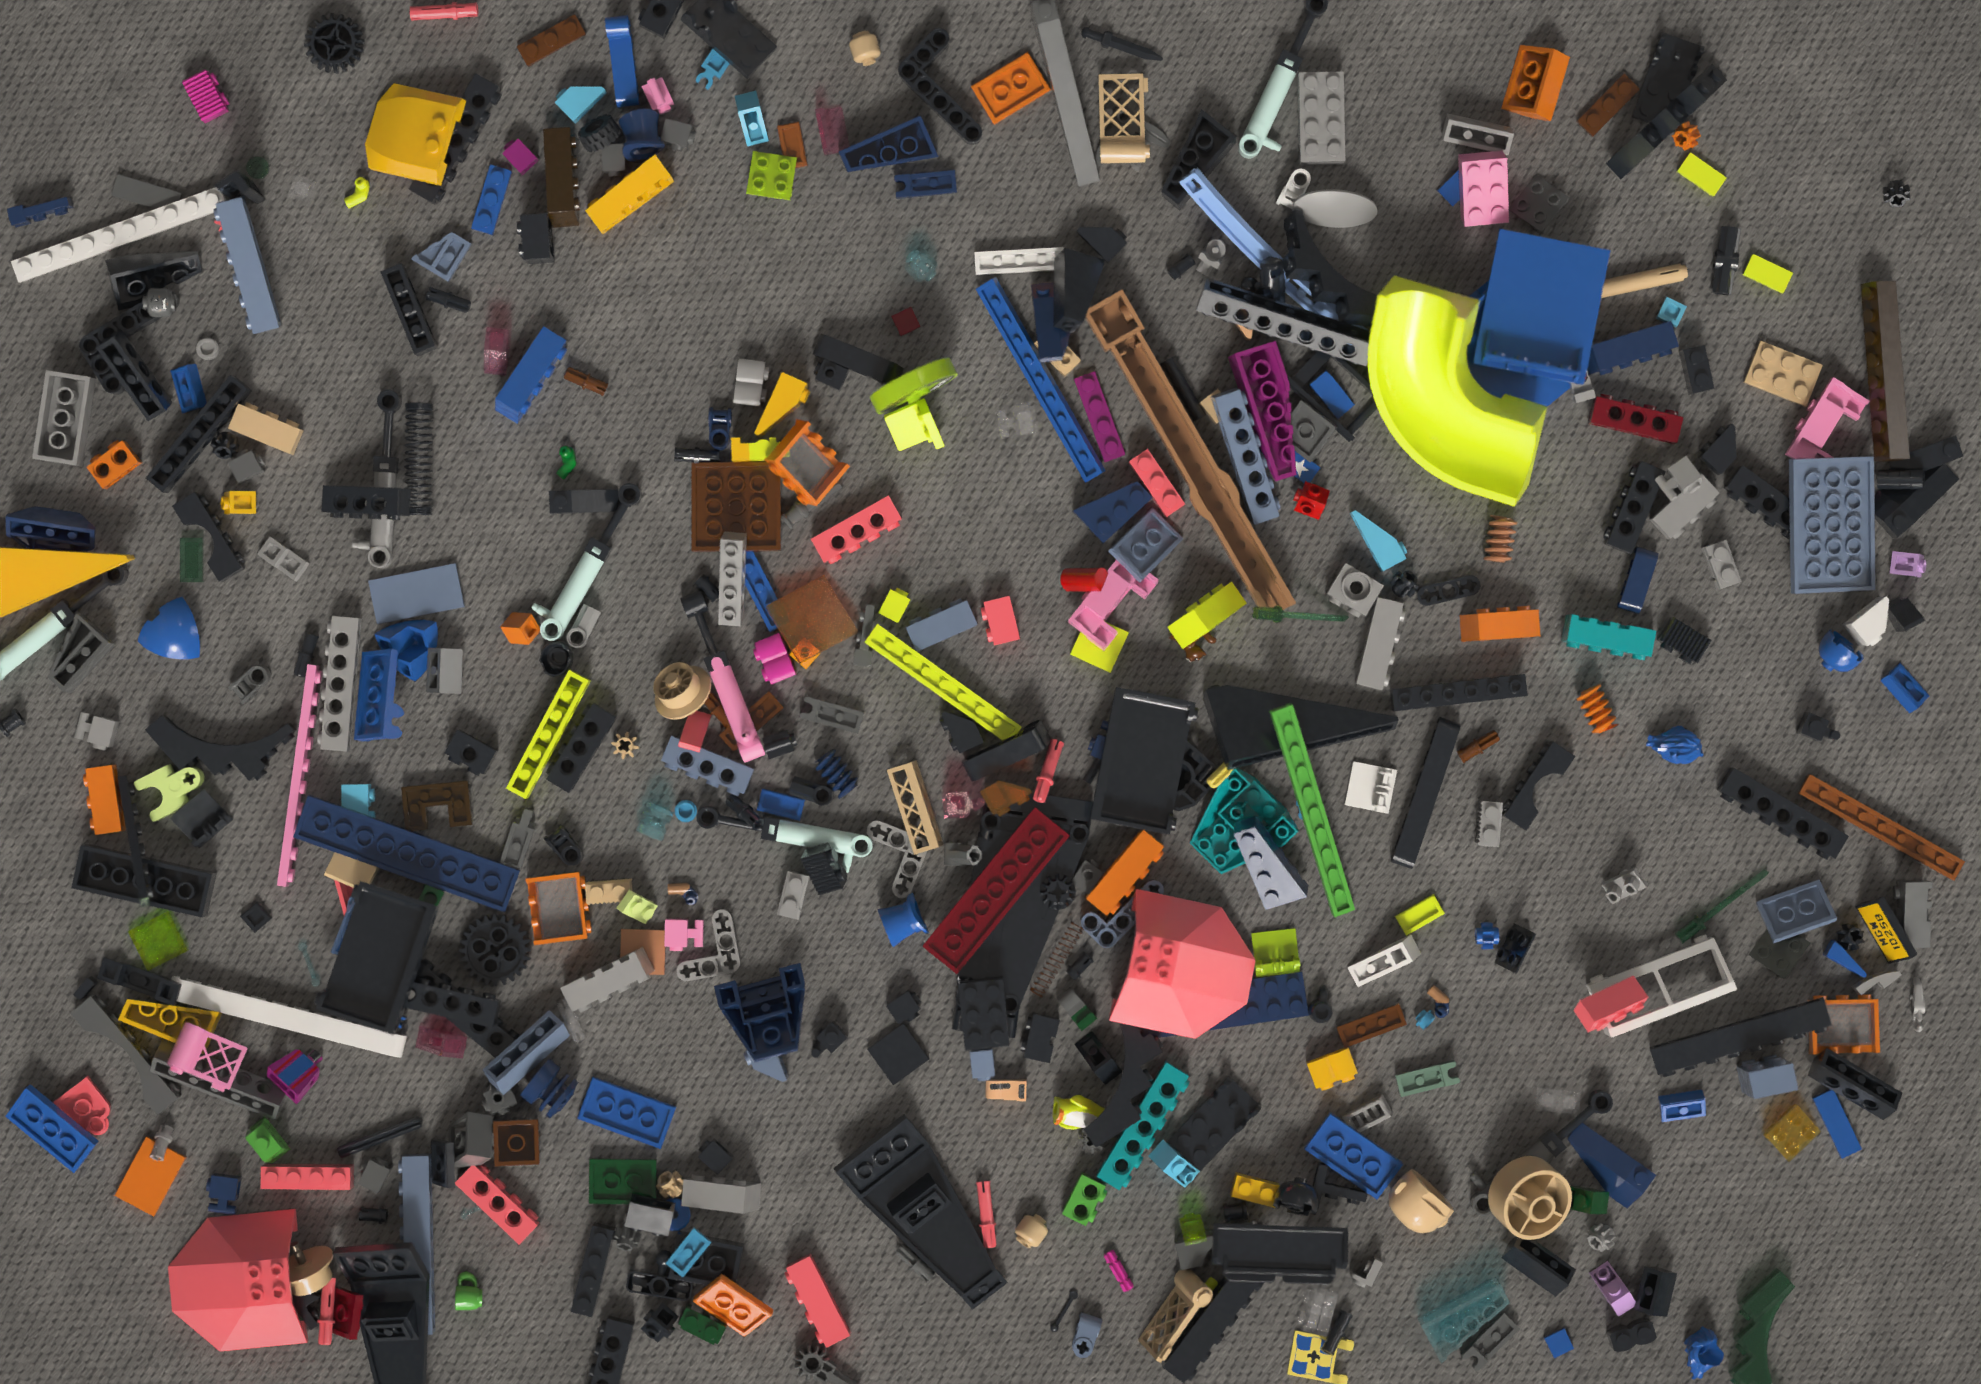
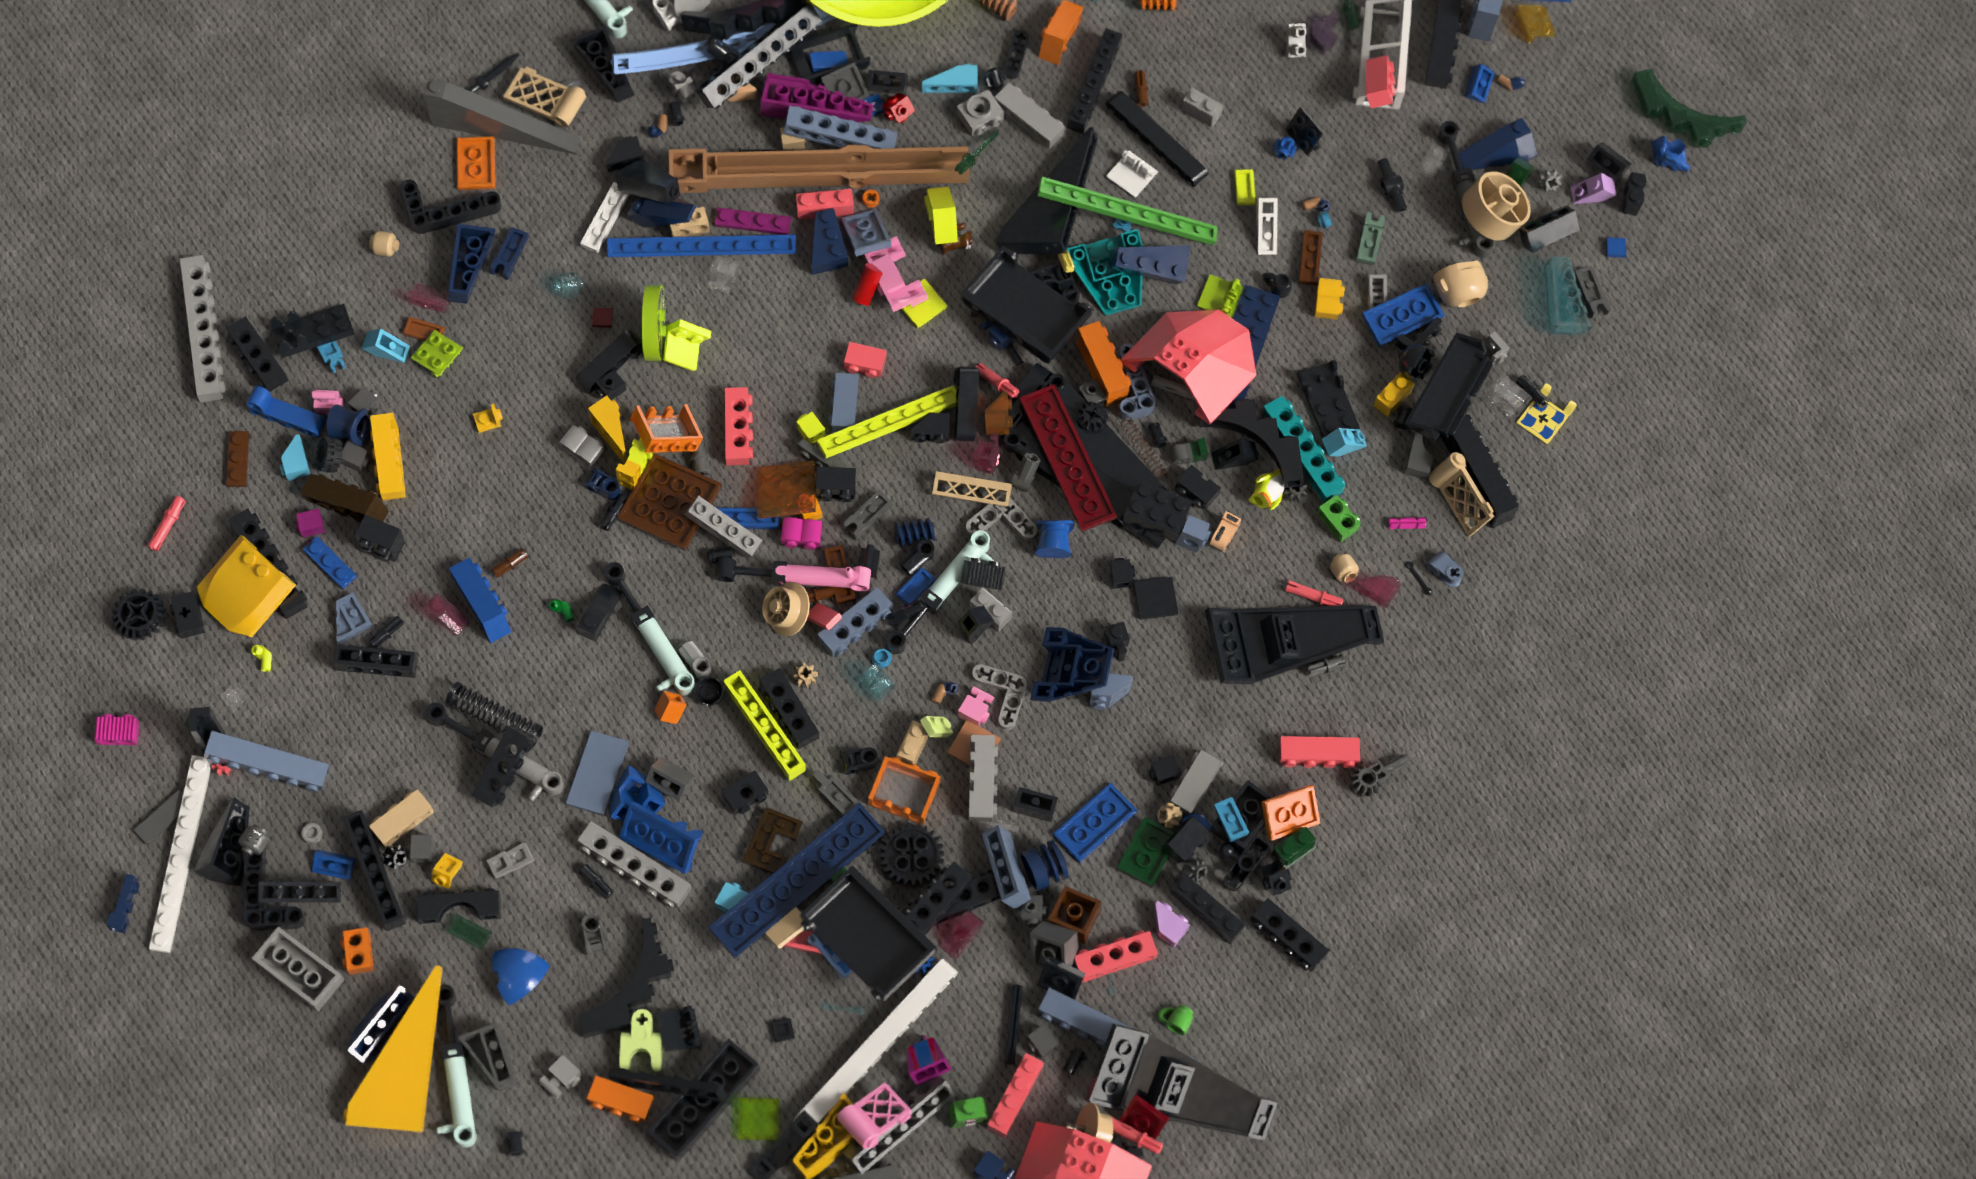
camera: 70 degrees left, 20 degrees down
(300, 766) = (695, 939): bright pink plate -> none
(370, 88) = (189, 604): none -> black brick
(556, 1240) = (1169, 925): none -> lavender slope
(609, 1046) = (1035, 804): none -> black brick
(729, 269) = (488, 419): none -> yellow bracket
(765, 889) = (975, 622): none -> black slope
(841, 668) = (836, 483): none -> black slope
(1028, 1279) = (1379, 588): none -> clear pink slope
(1155, 259) = (656, 131): none -> arm
(1192, 1229) = (1401, 450): clear neon green bracket -> none
(1199, 524) = (872, 193): none -> orange bush
(1336, 473) = (887, 82): none -> black brick
(1504, 1071) = (1392, 185): none -> black pin
(1521, 808) = (1179, 44): black arch -> none
(1647, 906) = (1321, 34): none -> clear purple brick
(1700, 1141) = (1511, 84): none -> arm

